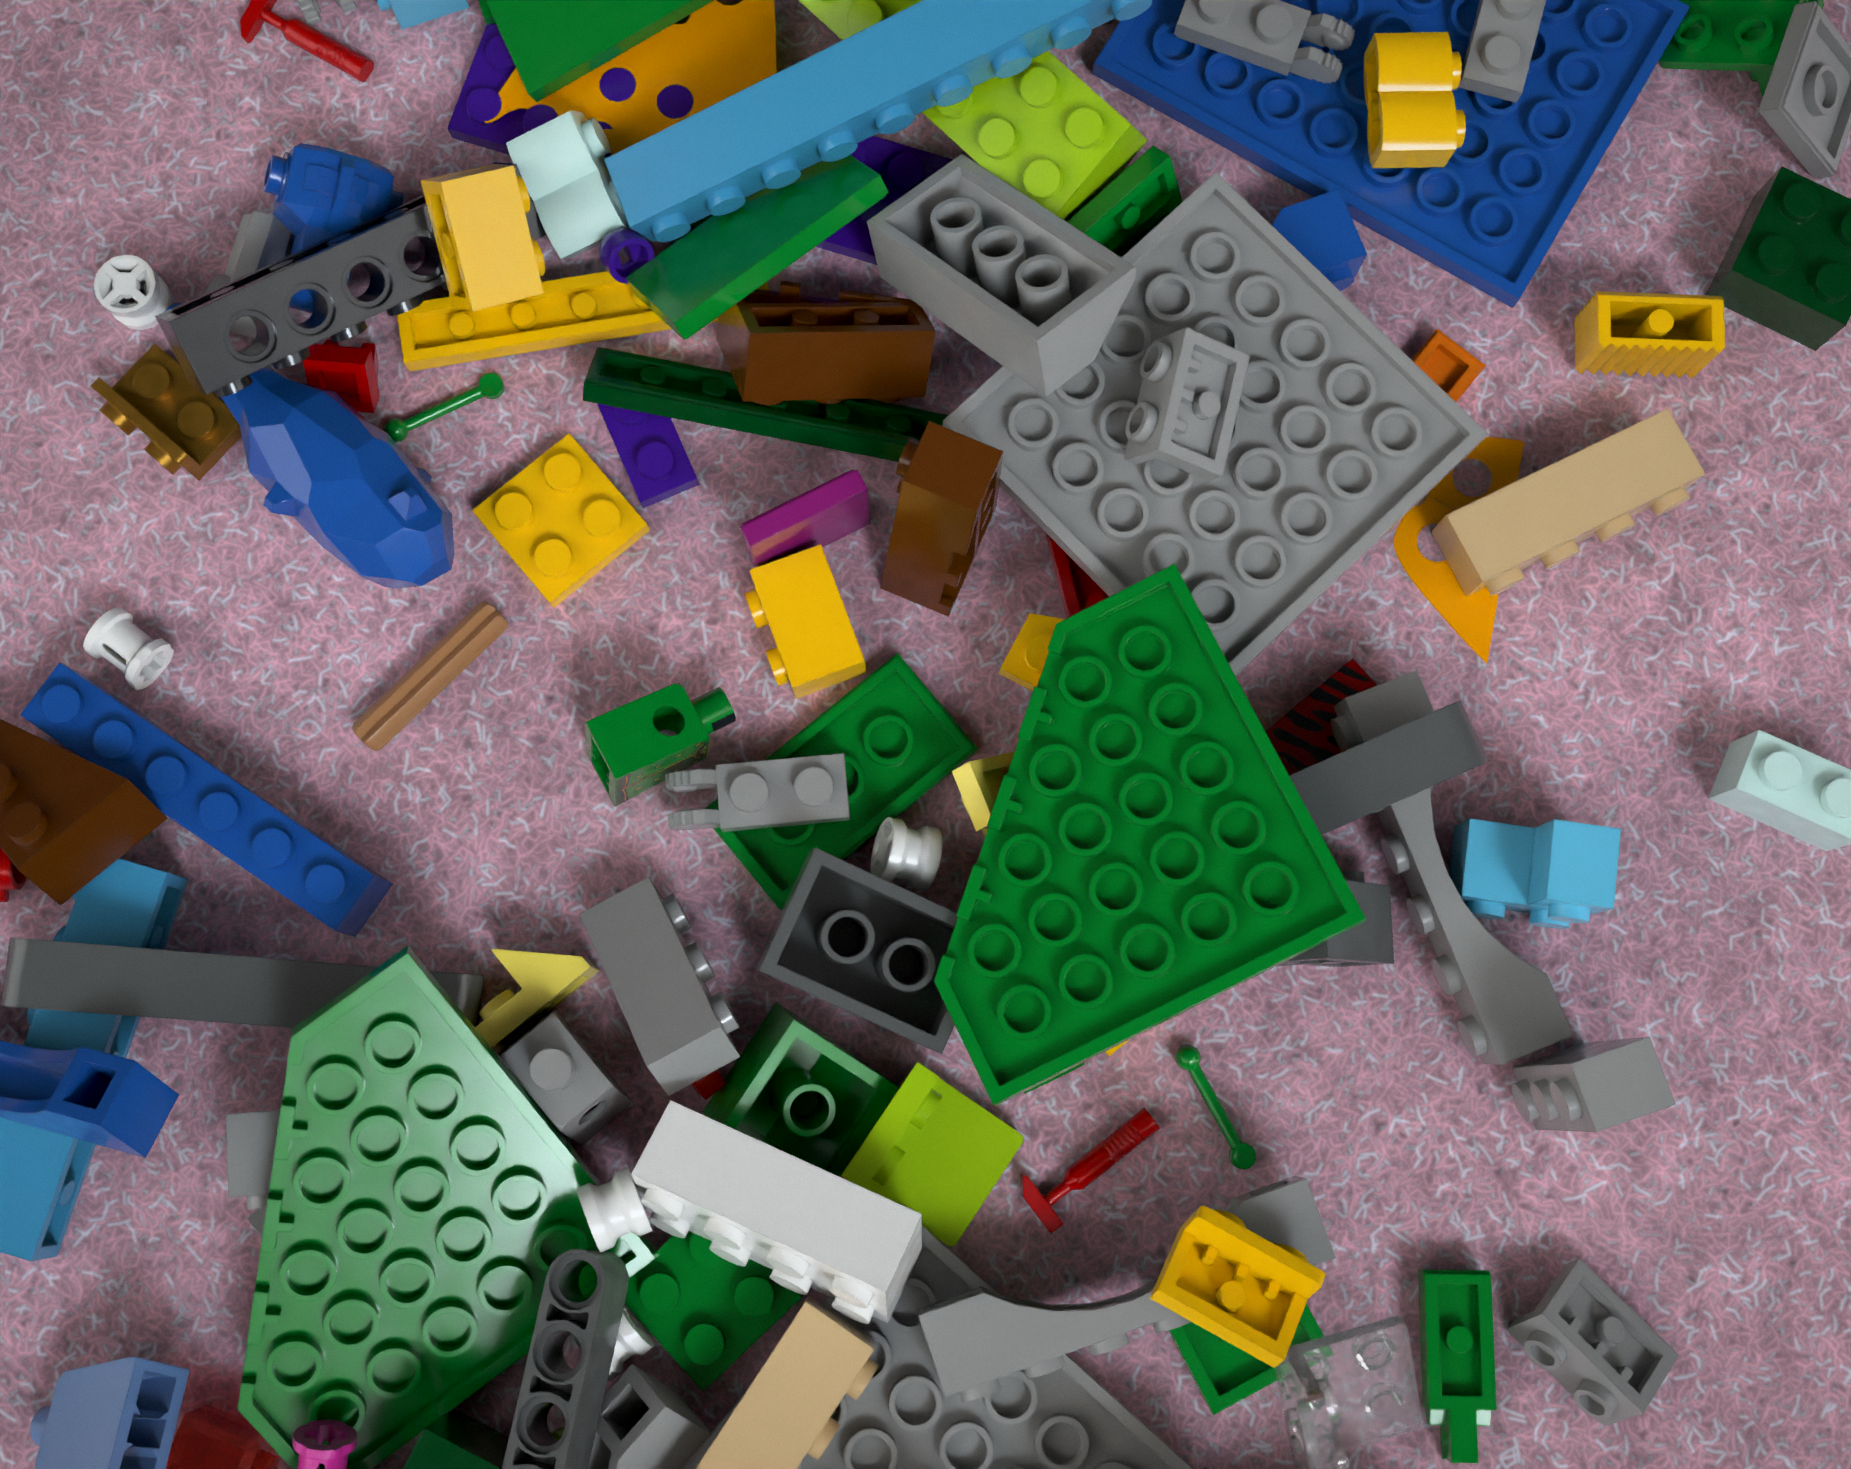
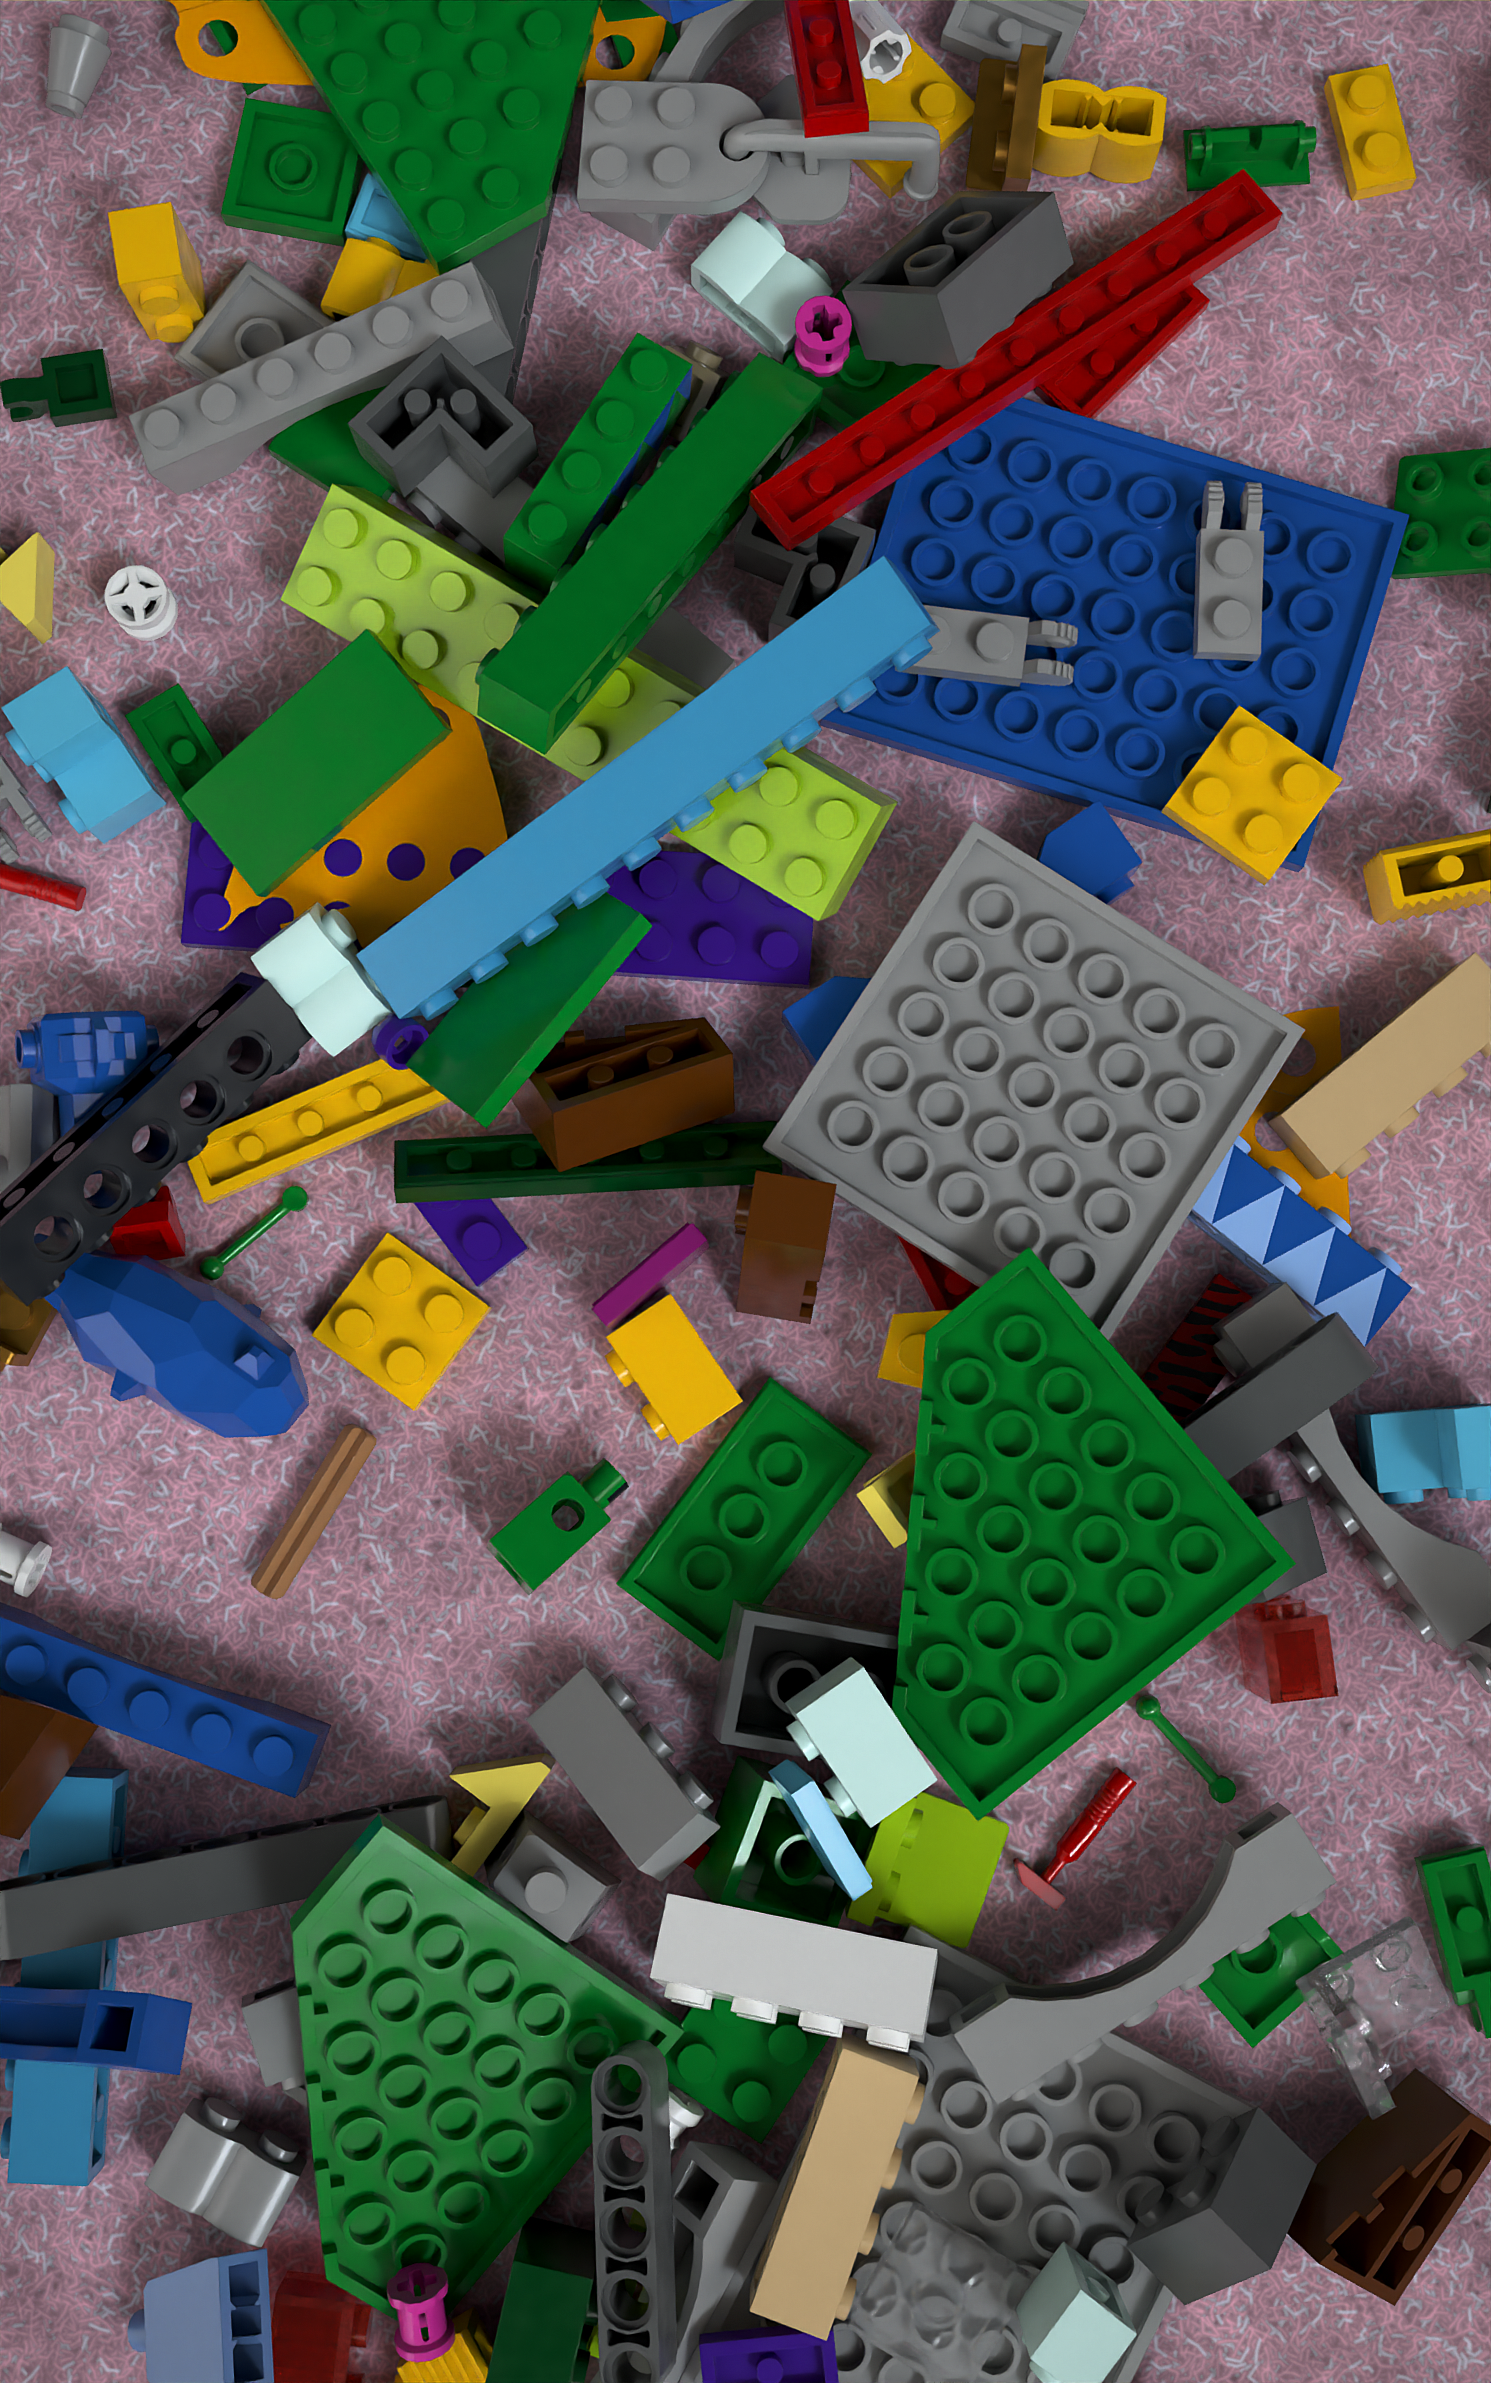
camera: 10 degrees left, 5 degrees up
(173, 1285) = (227, 2170): none -> light grey brick
(484, 236) = (257, 1067): yellow brick -> none
(614, 1209) = (637, 2006): white wheel -> none
(765, 794) = (678, 1553): light grey hinge -> none
(838, 1079) = (821, 1828): none -> medium azure tile
(894, 1000) = (860, 1743): none -> light aqua brick
(906, 853) = (829, 1579): white wheel -> none
(1002, 272) = (786, 983): light grey slope -> none
(1131, 203) = (891, 885): green plate -> none
(1187, 403) = (1002, 1076): light grey bracket -> none
(1237, 1284) = (1249, 1937): yellow bracket -> none
(1337, 1022) = (1286, 1651): none -> clear red brick
(1412, 100) = (1152, 689): yellow brick -> none
(1415, 626) = (1287, 1240): none -> brick
(1448, 364) = (1243, 954): orange tile -> none
(1484, 220) = (1252, 795): none -> yellow plate

